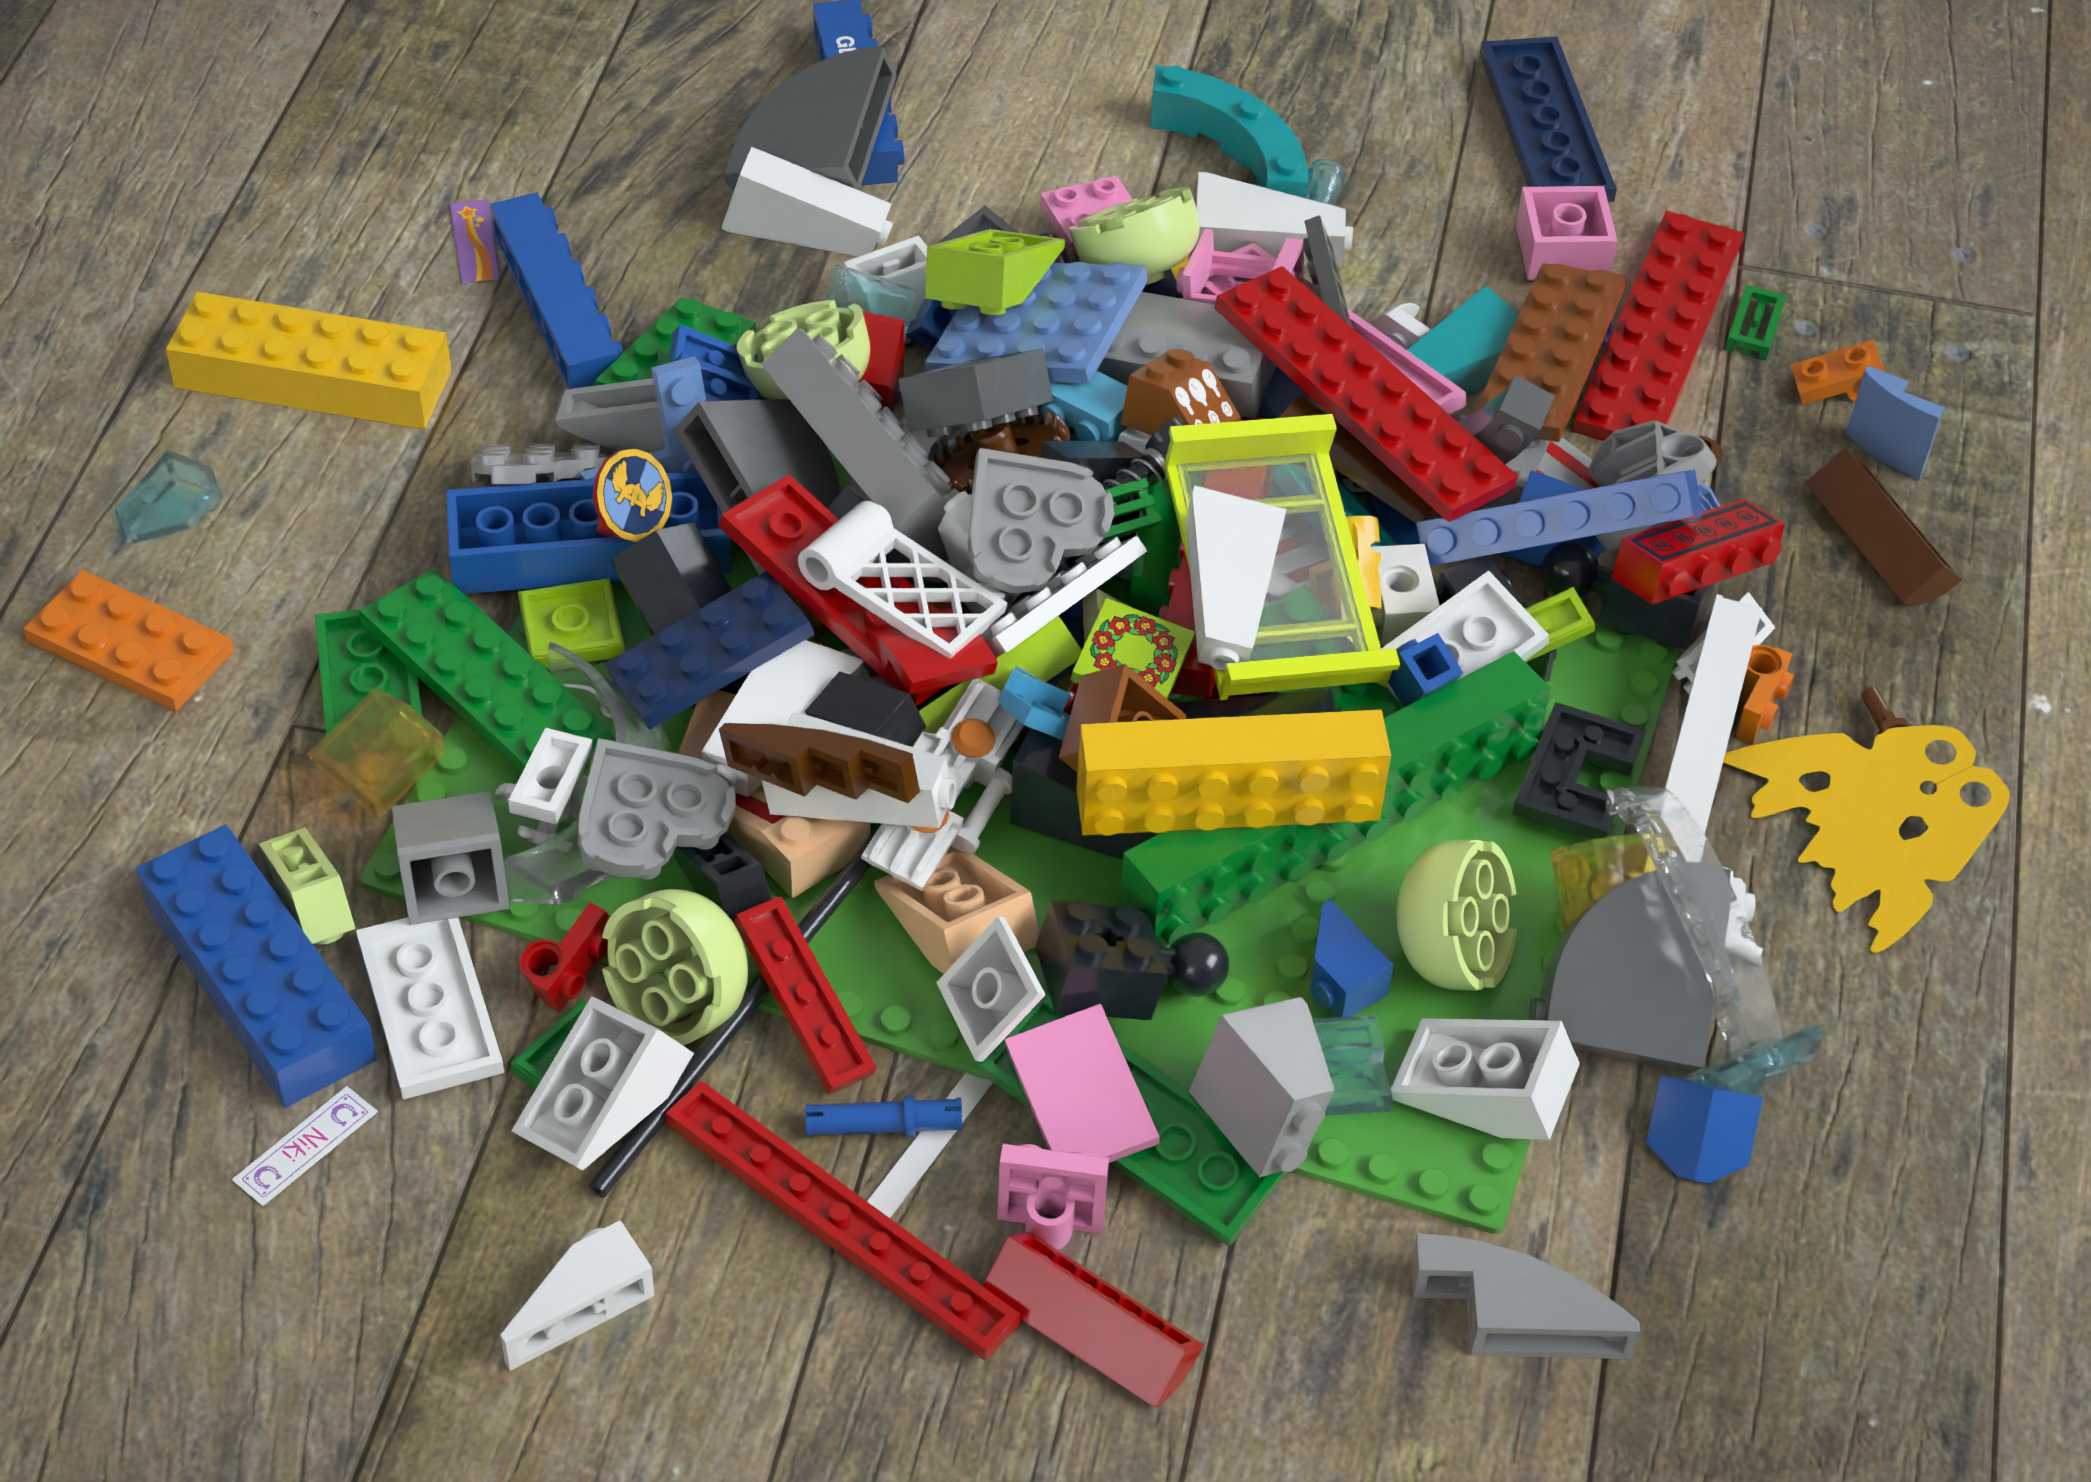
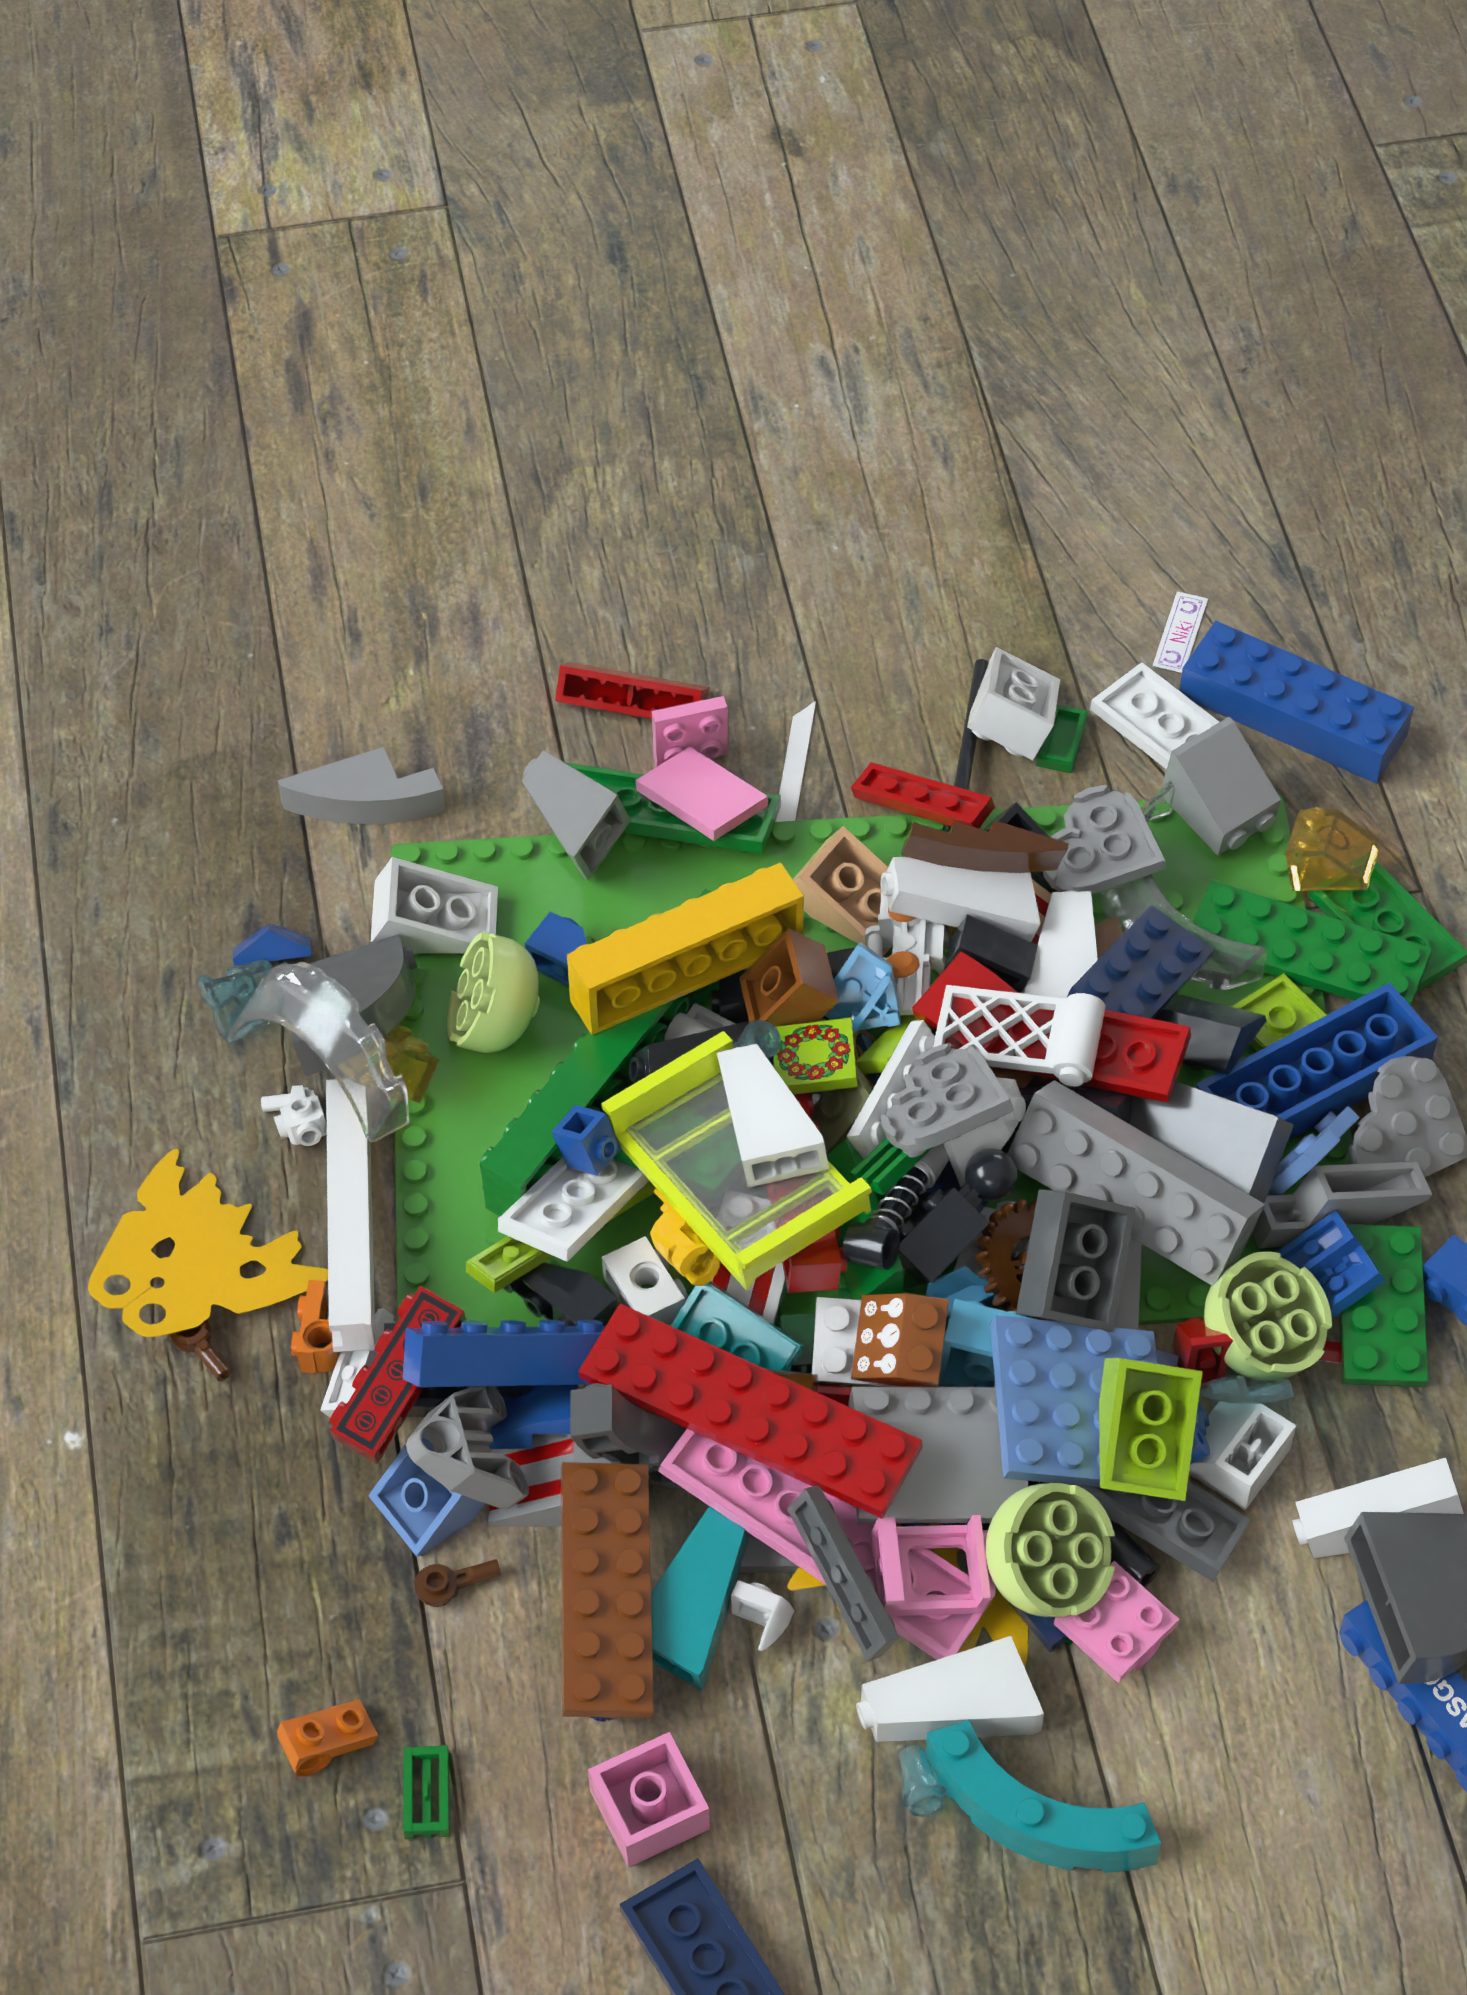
camera: 160 degrees right, 5 degrees up
(308, 886) = (1308, 765): yellowish green slope -> none
(549, 784) = (1181, 838): white piece -> none
(573, 958) = (1099, 765): red plate -> none
(585, 1288) = (941, 605): white slope -> none
(631, 495) = (1281, 1047): shield -> none
(694, 949) = (1018, 774): yellowish green cylinder -> none
(844, 1220) = (822, 694): red plate -> none
(884, 1117) = (818, 766): blue pin -> none
(990, 988) = (789, 821): white slope -> none
(1115, 961) = (707, 863): black brick -> none
(1193, 683) = (762, 1034): none -> clear light blue cone
(1355, 1064) = (543, 886): clear light blue slope -> none
(1550, 786) = (460, 1205): black plate -> none
(1660, 326) = (517, 1748): red plate -> none
(1882, 530) = (245, 1557): reddish brown brick -> none
(1893, 423) = (259, 1654): medium blue slope -> none

